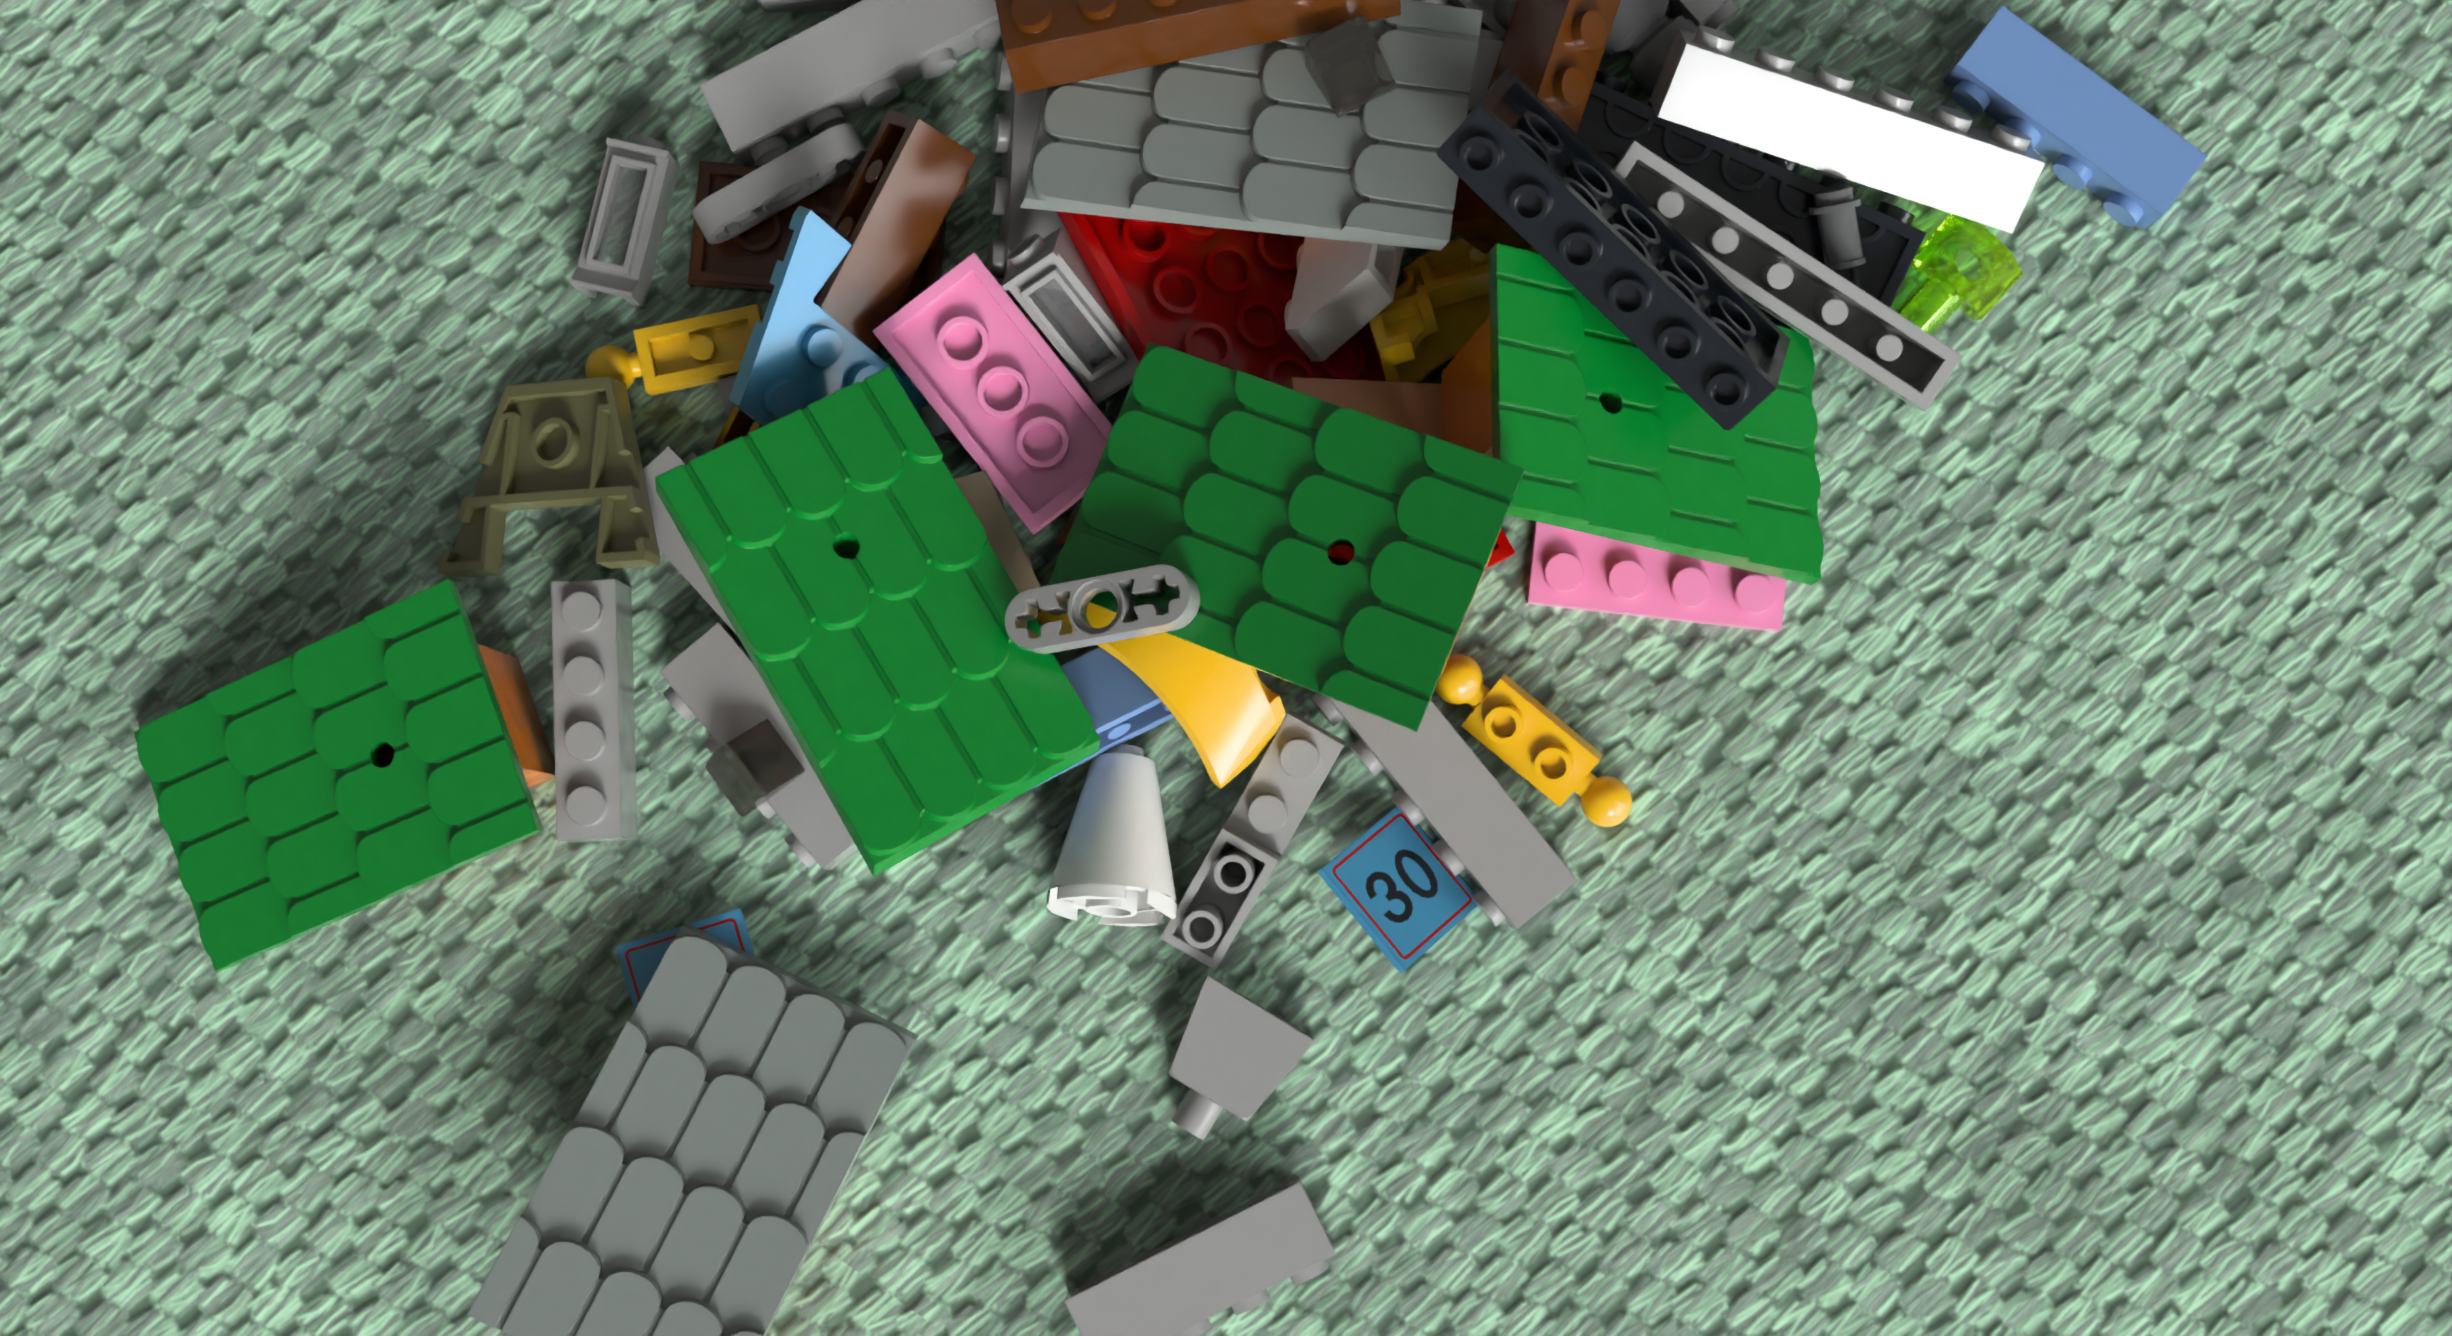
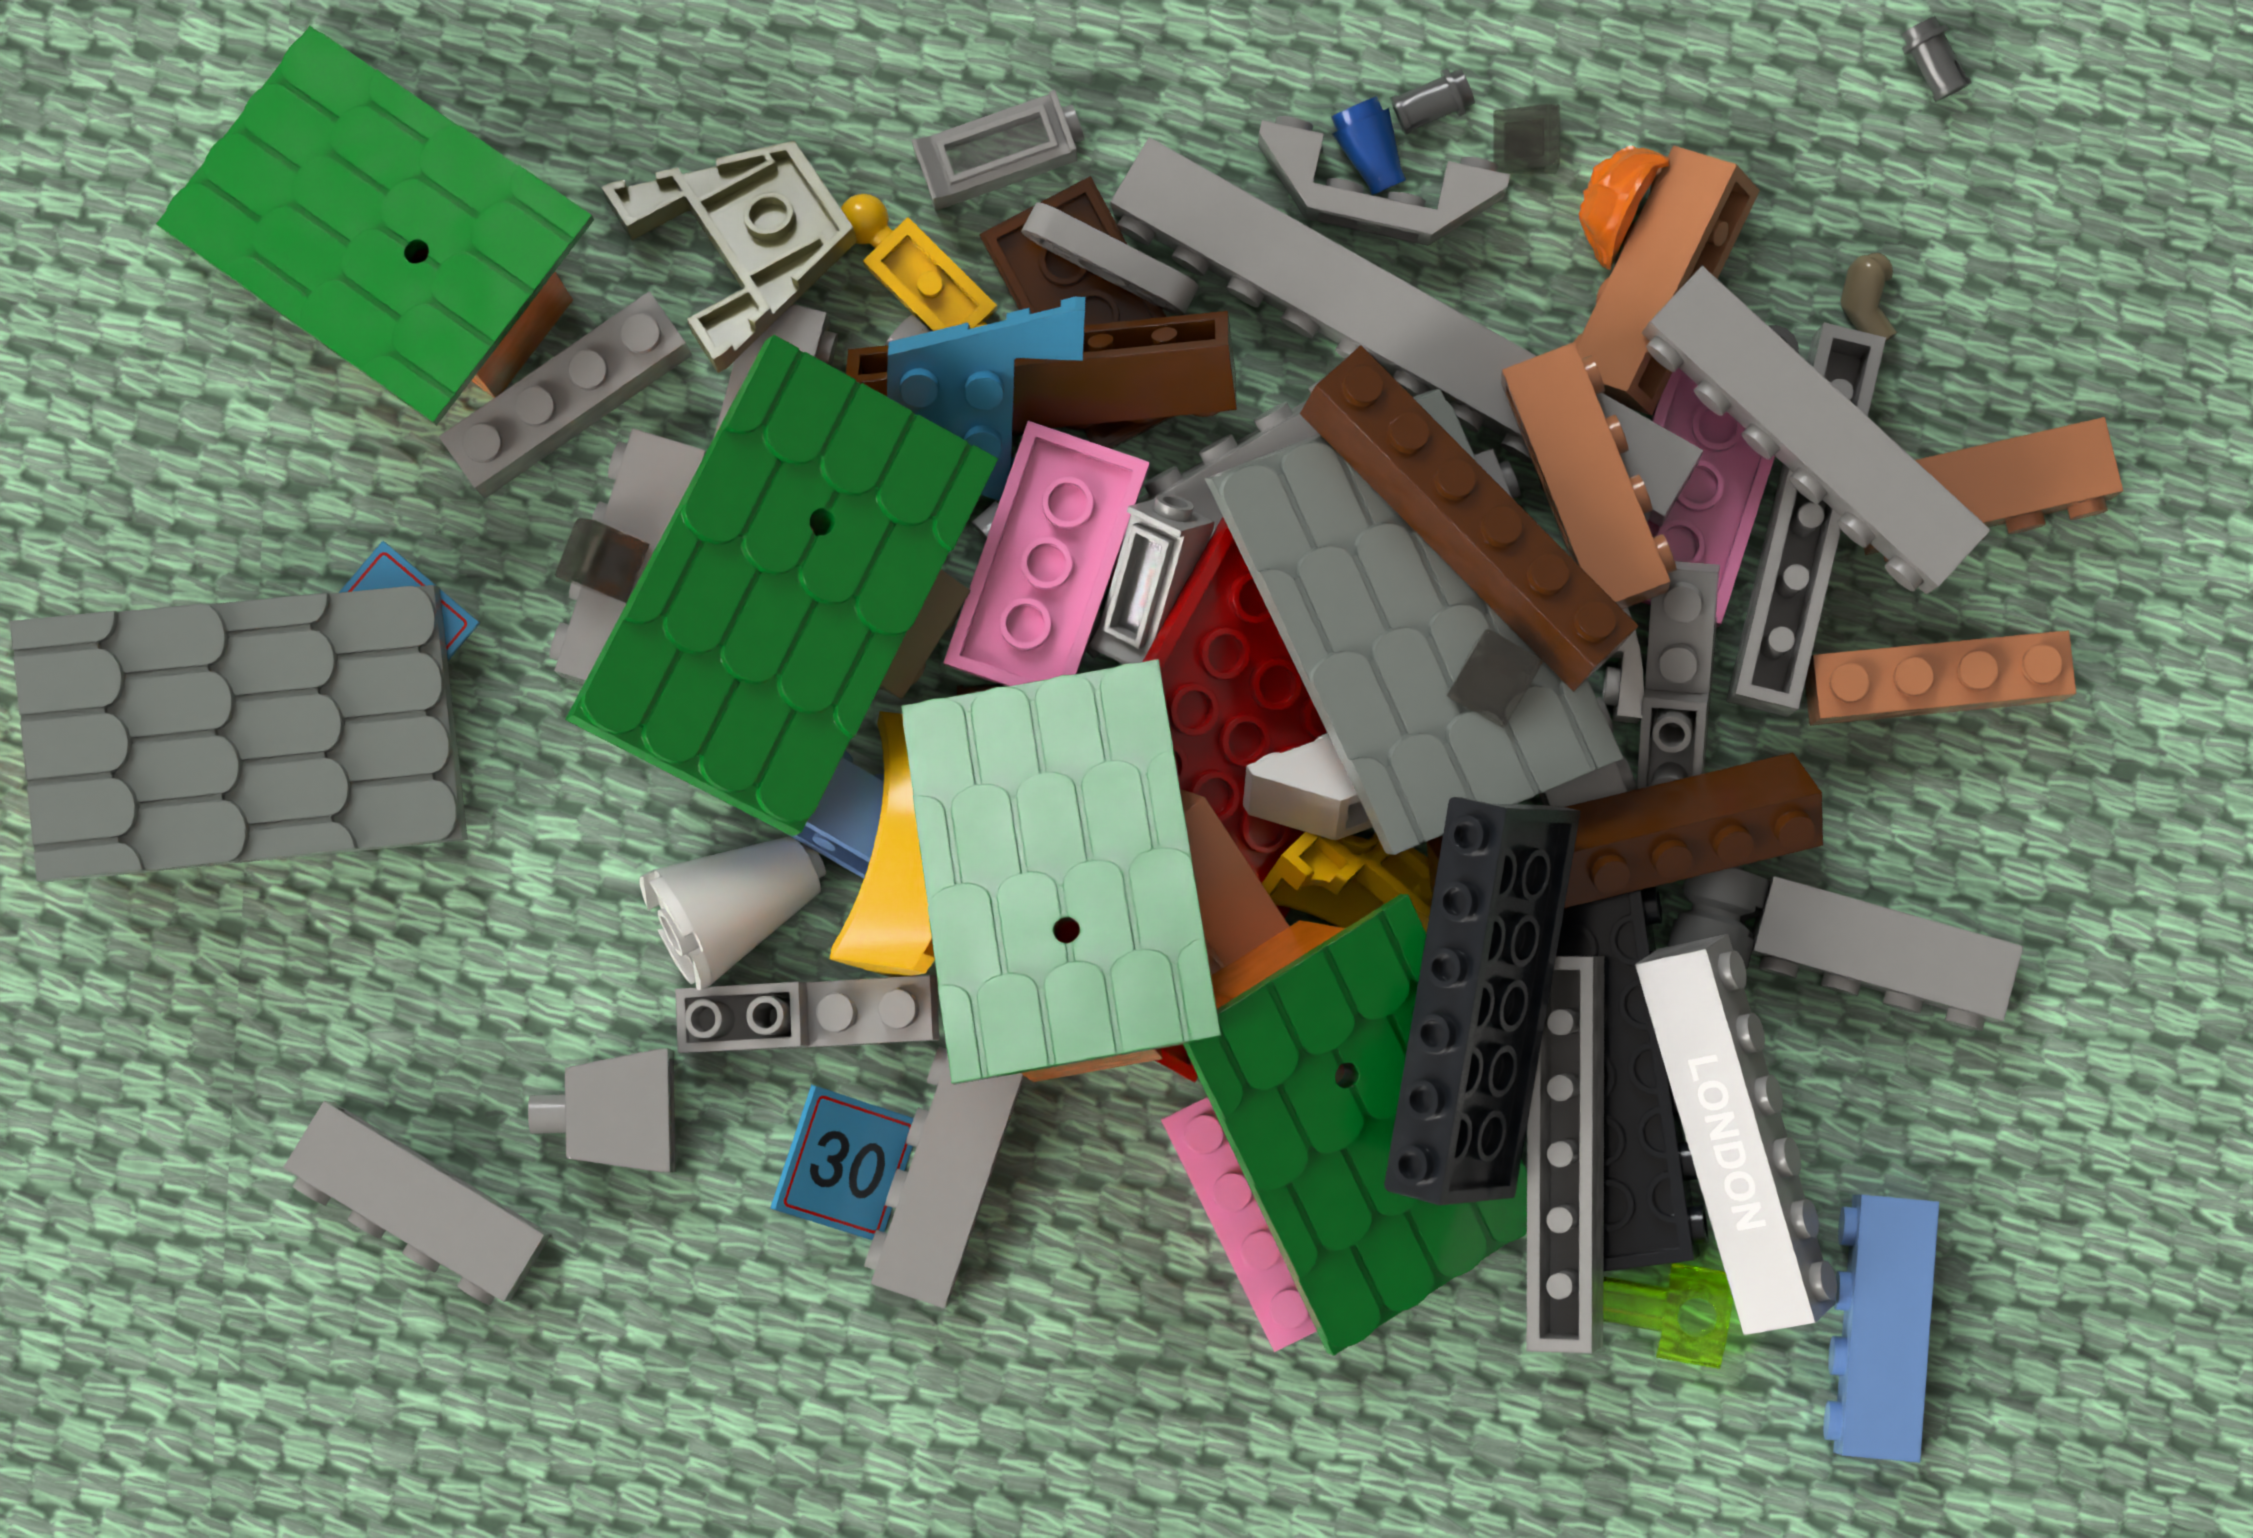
camera: 55 degrees right, 0 degrees up
(1145, 583) = (944, 786): light grey beam -> none
(1533, 741) = (1043, 1198): yellow plate -> none
(1838, 227) = (1645, 1180): dark grey pin -> none

